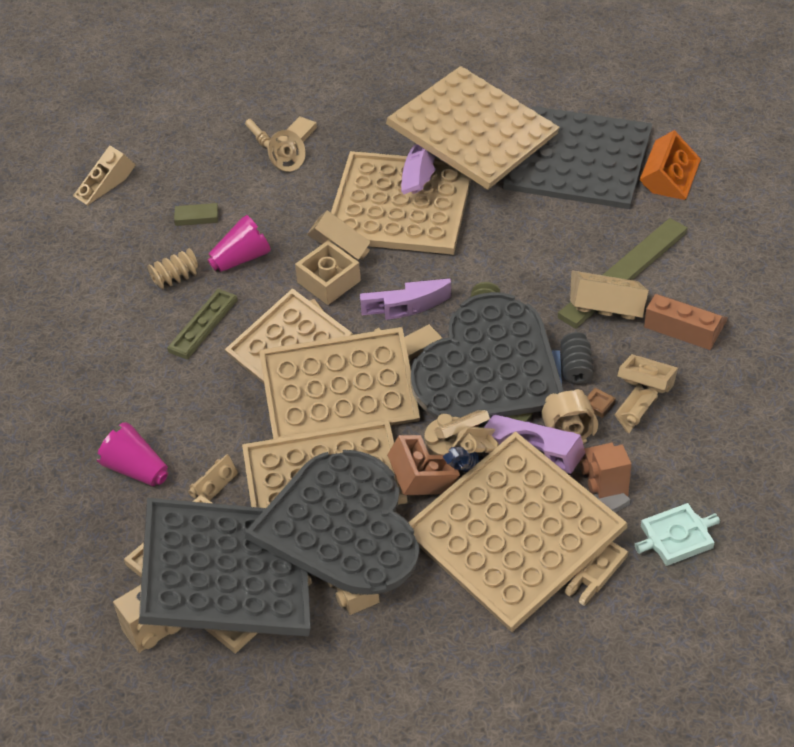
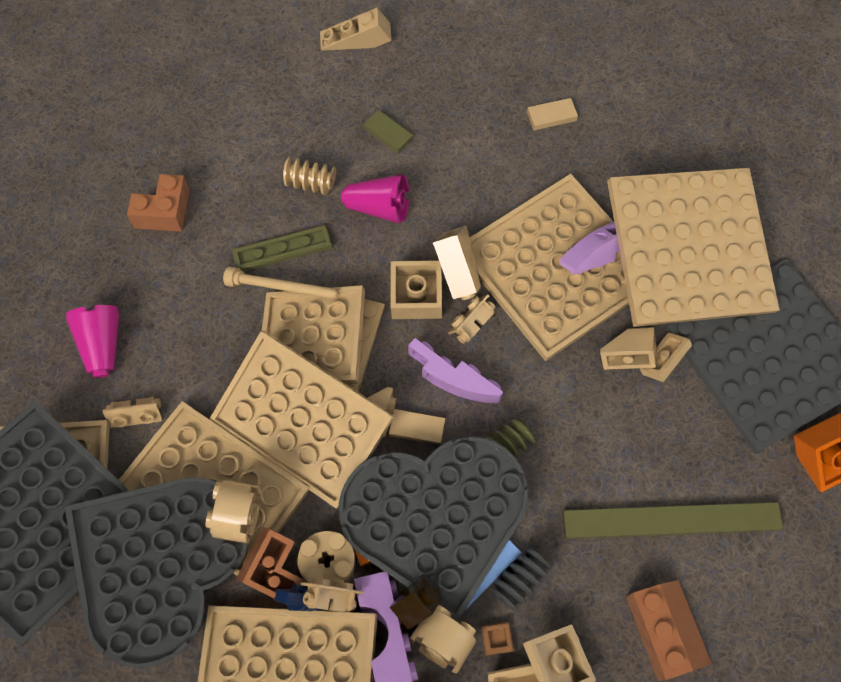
camera: 40 degrees right, 20 degrees up
(86, 358) = (163, 210): none -> nougat brick
(192, 357) = (235, 277): none -> tan piece
(284, 150) = (516, 121): tan dish -> none
(364, 443) = (233, 511): none -> tan brick
(380, 265) = (477, 310): none -> tan hinge
(459, 424) = (333, 566): tan tile -> none
(500, 207) = (630, 350): none -> tan slope
(522, 198) = (668, 355): none -> tan plate
(533, 406) = (416, 603): none -> dark brown brick
(607, 295) = (622, 538): tan slope -> none

